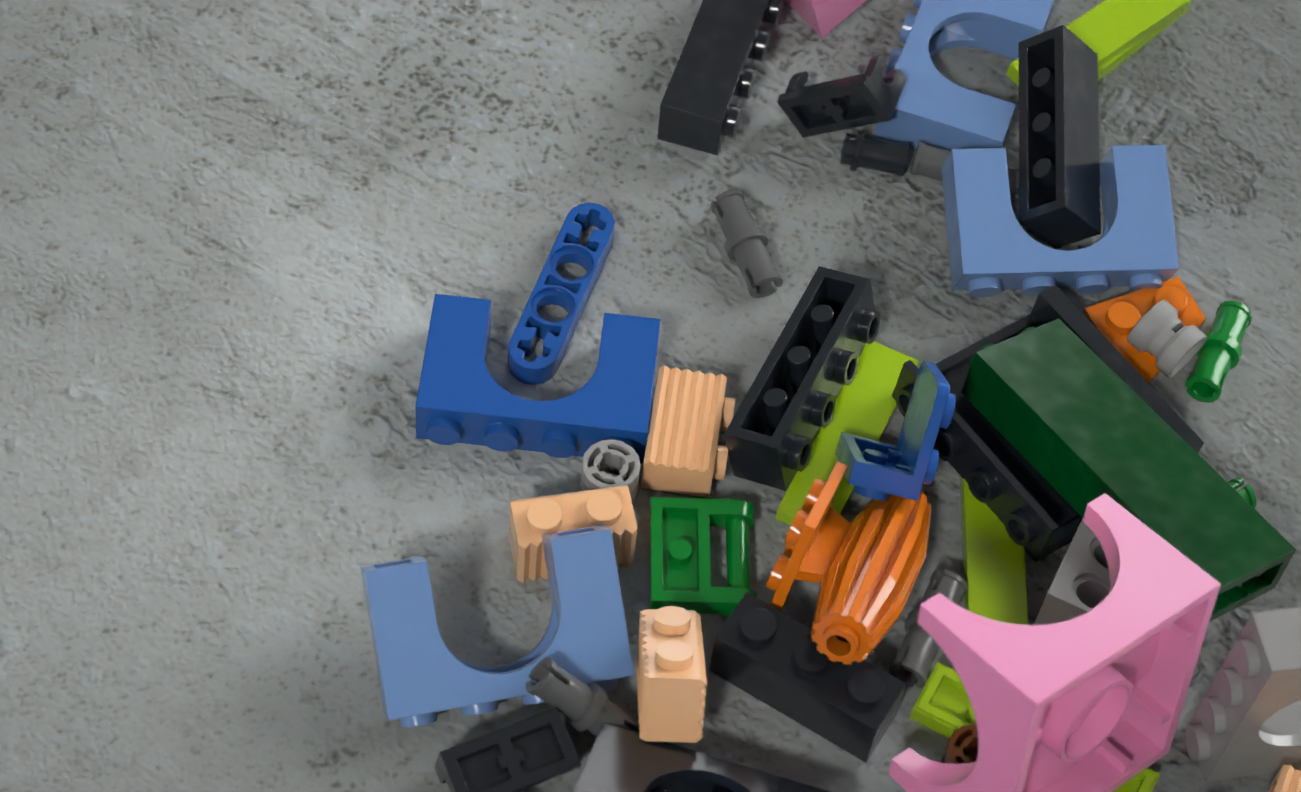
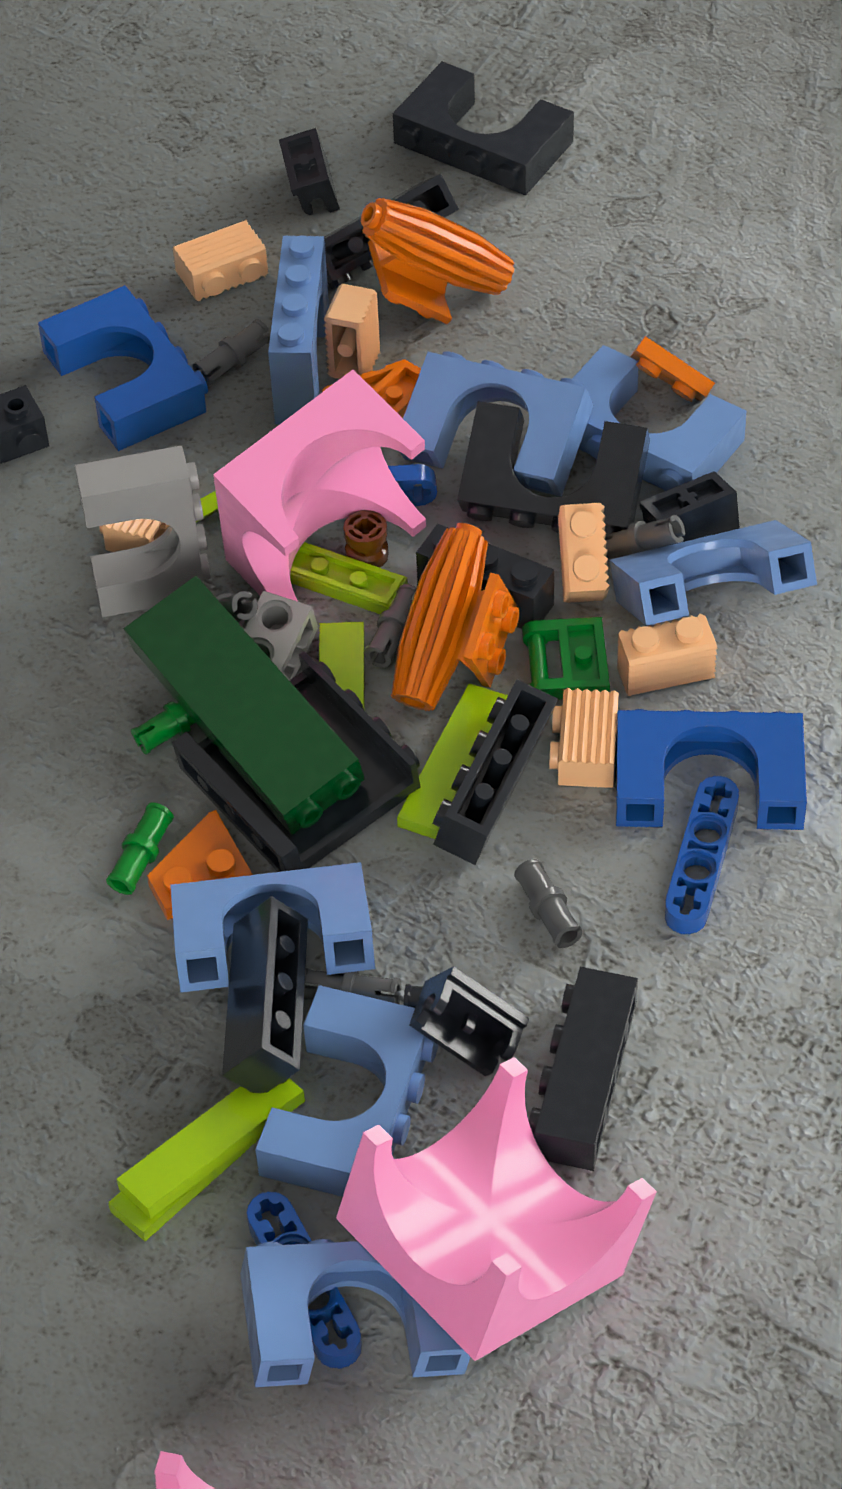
camera: 175 degrees left, 5 degrees down
(607, 460) = (643, 690): light grey wheel -> none
(902, 469) = (426, 692): blue bracket -> none
(1166, 338) = (194, 827): light grey wheel -> none

